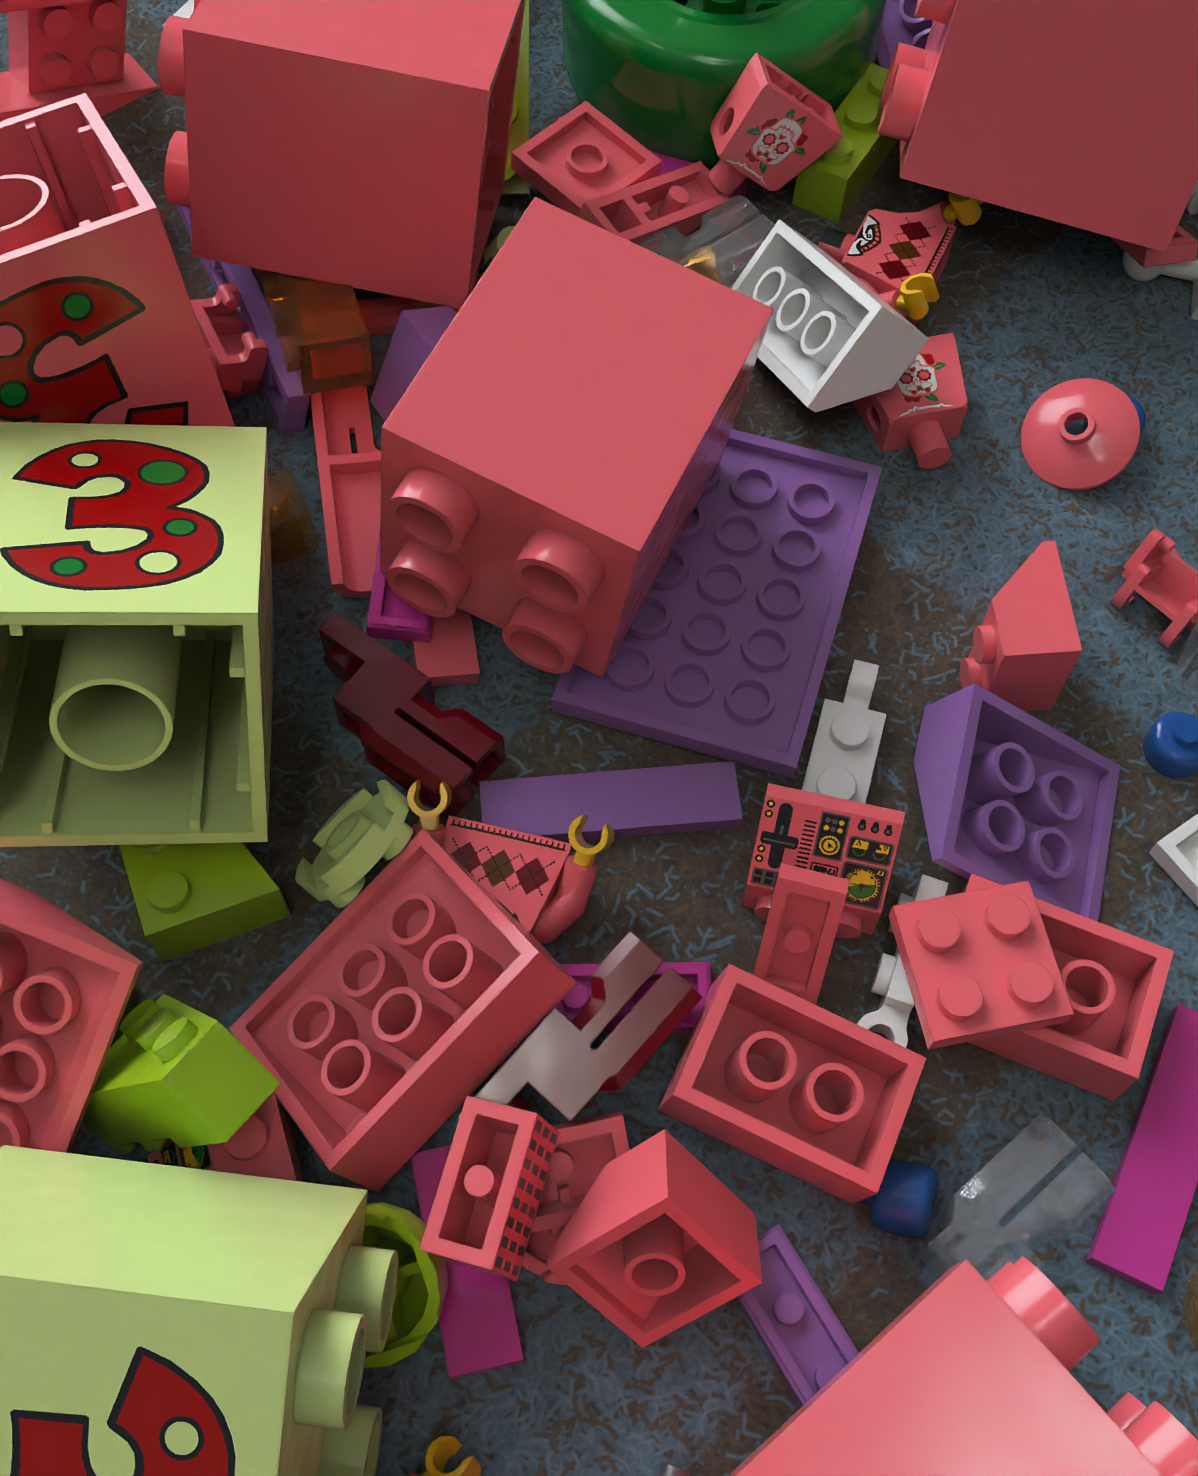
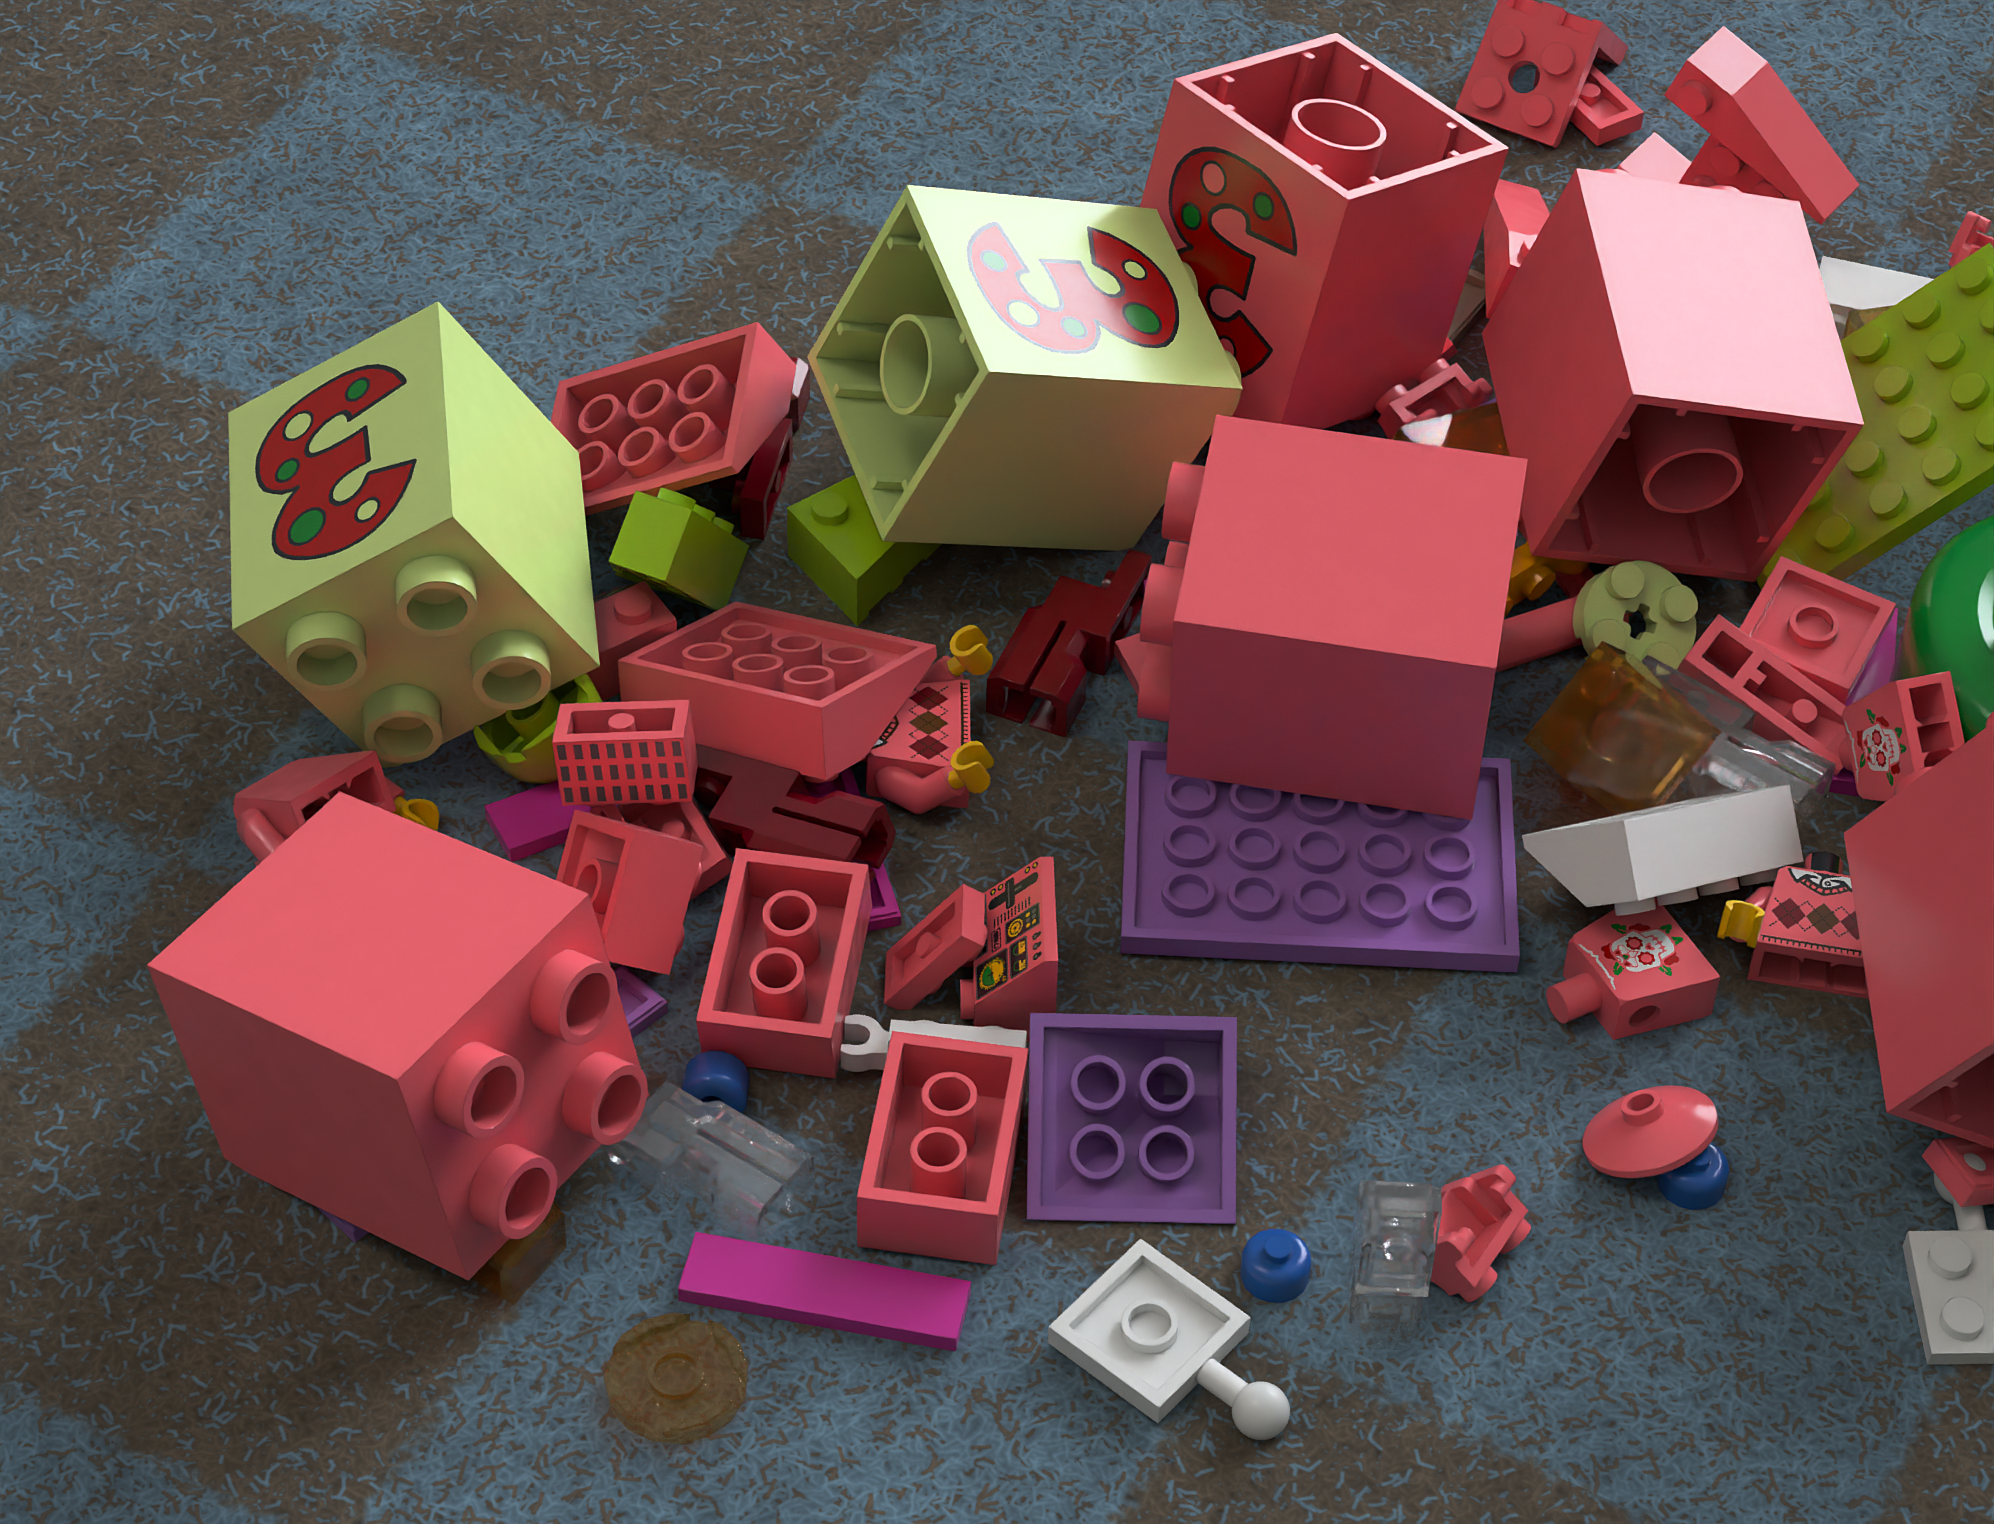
camera: 75 degrees right, 15 degrees down
(354, 842) = (913, 620): yellowish green plate -> none
(630, 800) = (1044, 817): medium lavender tile -> none
(847, 740) = (1165, 983): white plate -> none
(979, 964) = (930, 1054): coral plate -> none
(1026, 636) = (1334, 1077): coral slope -> none

